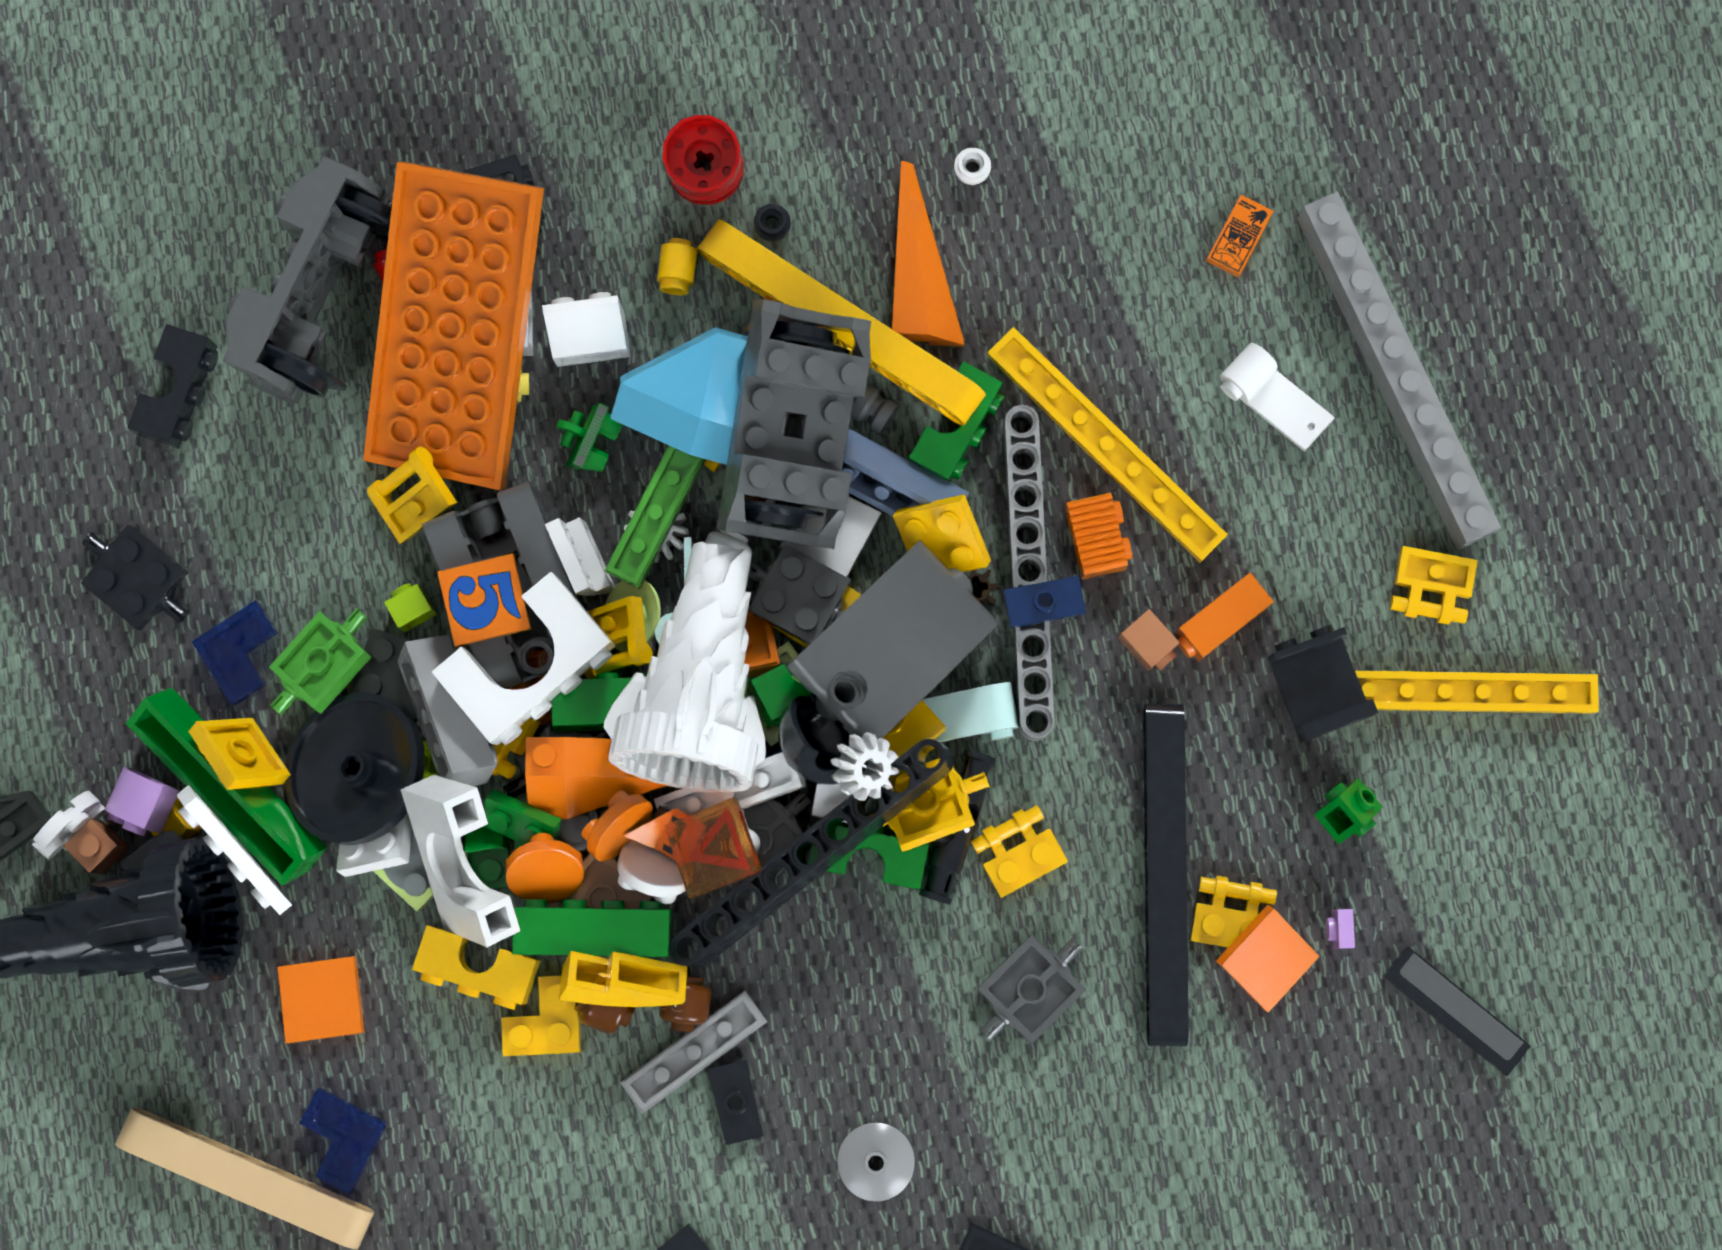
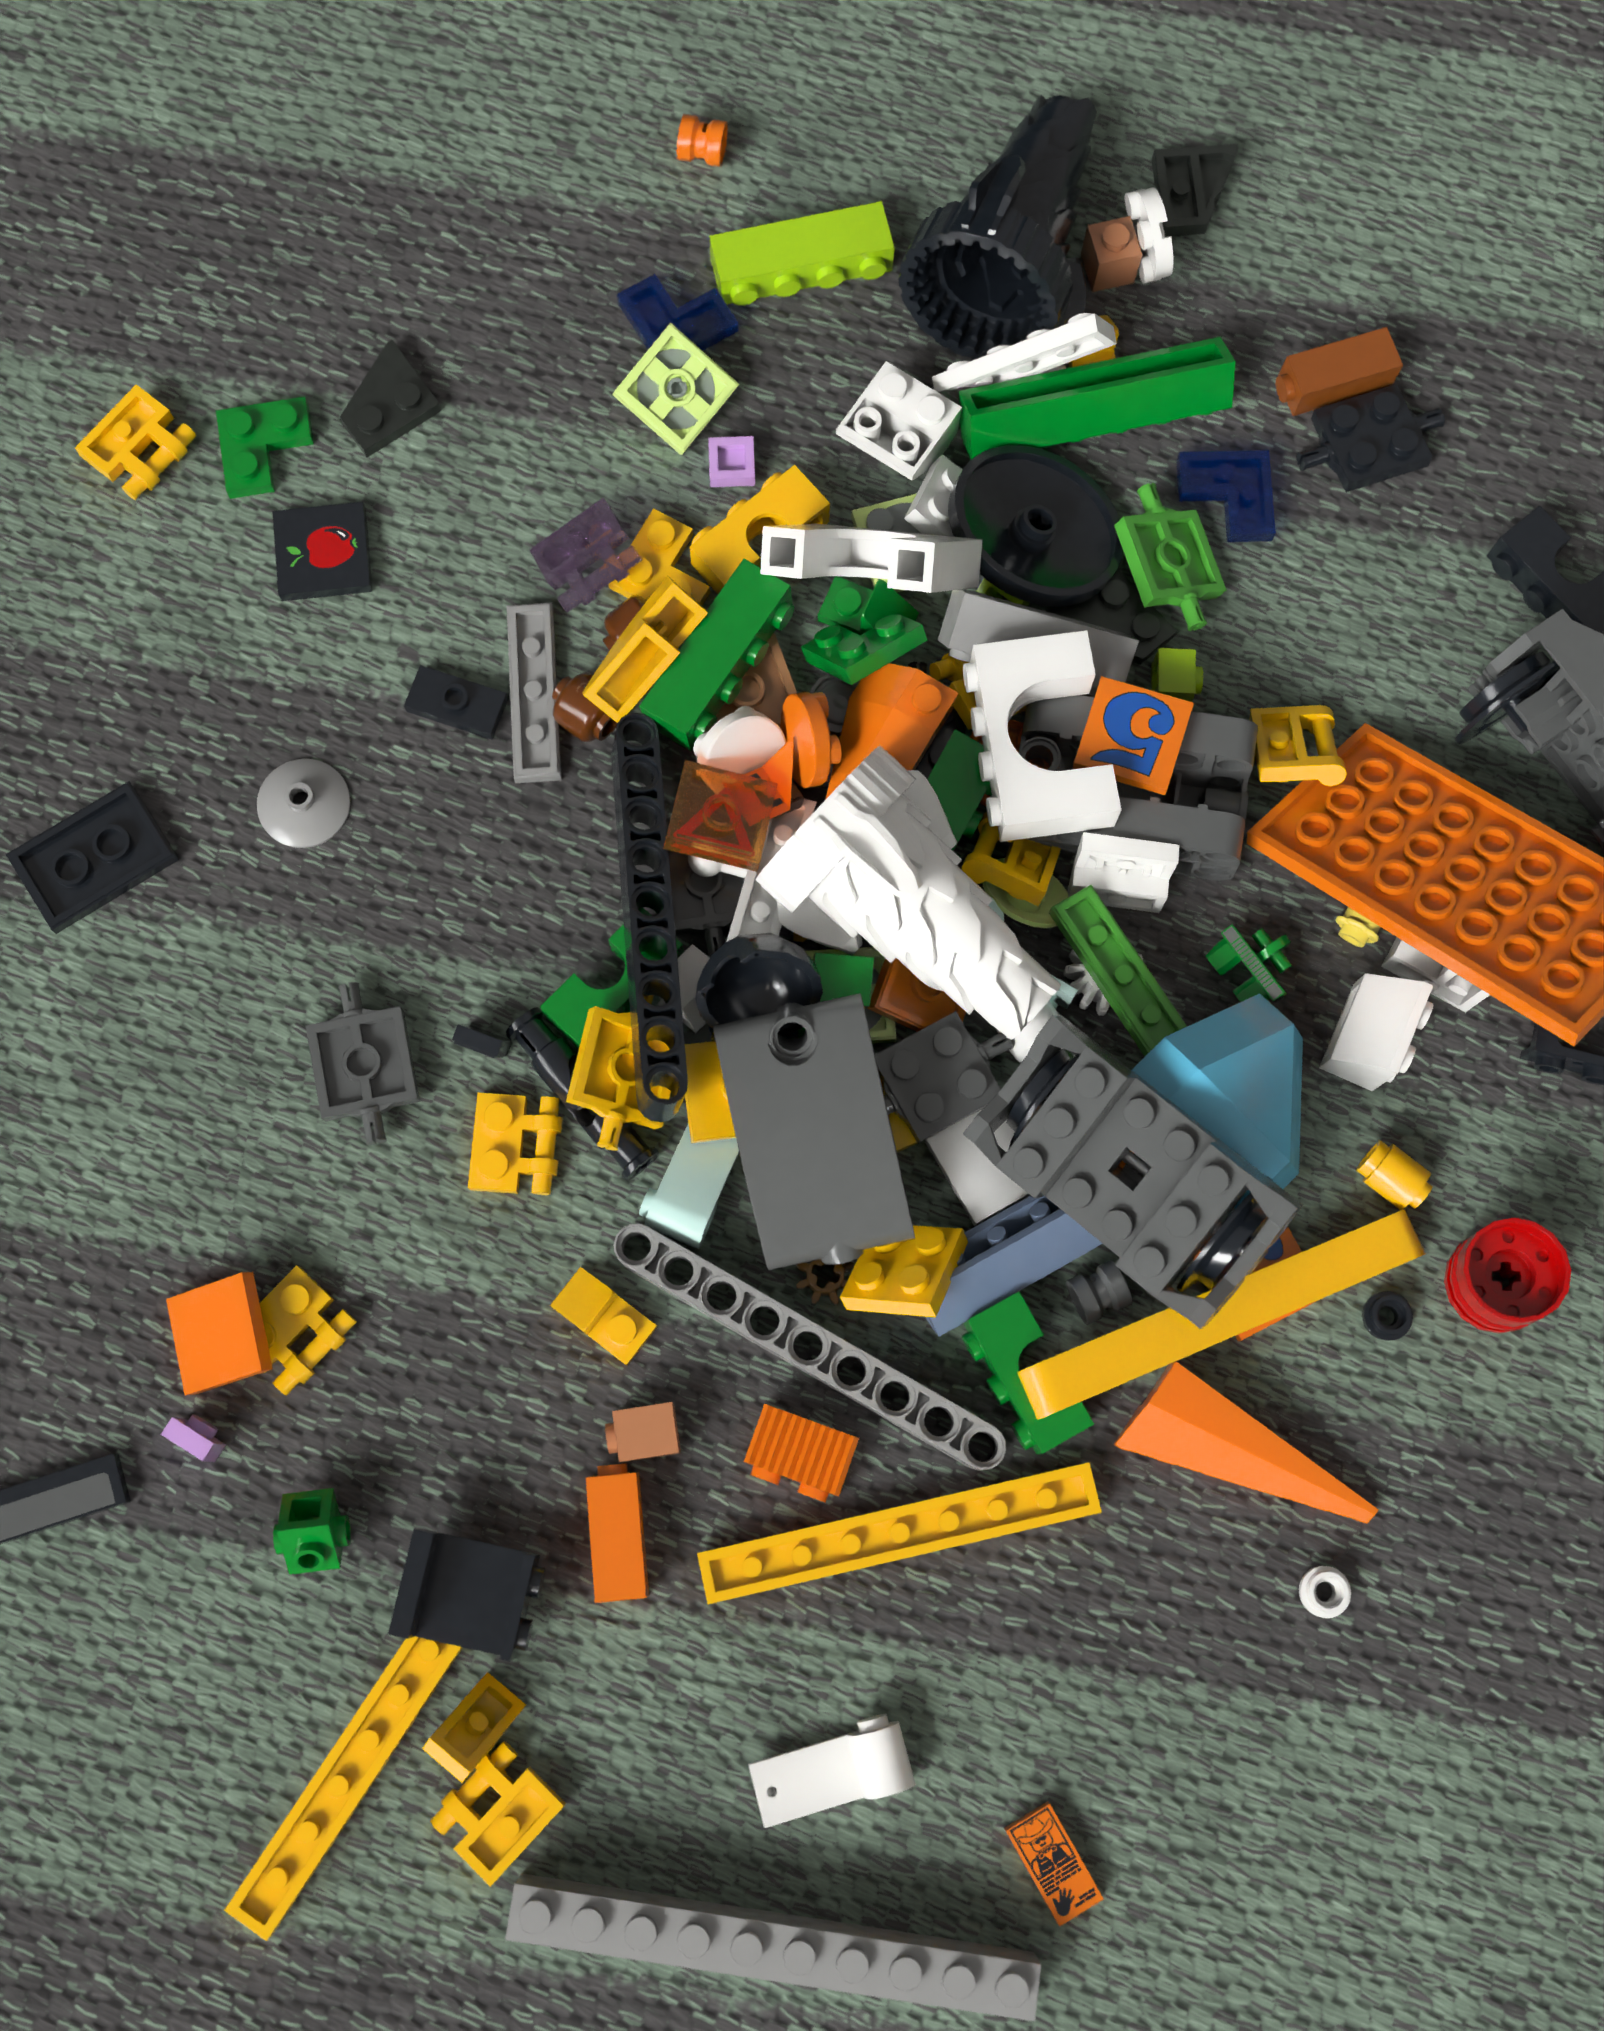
camera: 115 degrees right, 5 degrees down
(96, 628) = (1338, 371): none -> dark orange brick
(140, 802) = (1133, 307): lavender brick -> none
(178, 1214) = (702, 140): none -> orange wheel
(231, 1076) = (802, 253): none -> lime brick
(239, 753) = (1121, 423): yellow plate -> none
(244, 1178) = (693, 213): tan beam -> none
(320, 999) = (822, 375): orange tile -> none
(332, 915) = (901, 422): none -> white slope
(400, 1098) = (675, 389): none -> yellowish green piece
(431, 1022) = (731, 461): none -> lavender plate
(544, 869) = (810, 641): orange tile -> none
(565, 1088) = (578, 546): none -> clear purple plate
(876, 771) = (677, 1002): white gear -> none
(965, 917) = (481, 1041): none -> black tile
(1044, 602) = (760, 1335): dark blue plate -> none
(1092, 718) = (603, 1316): none -> yellow slope
(1165, 875) = (386, 1285): black beam -> none
(1394, 630) = (474, 1727): none -> yellow slope

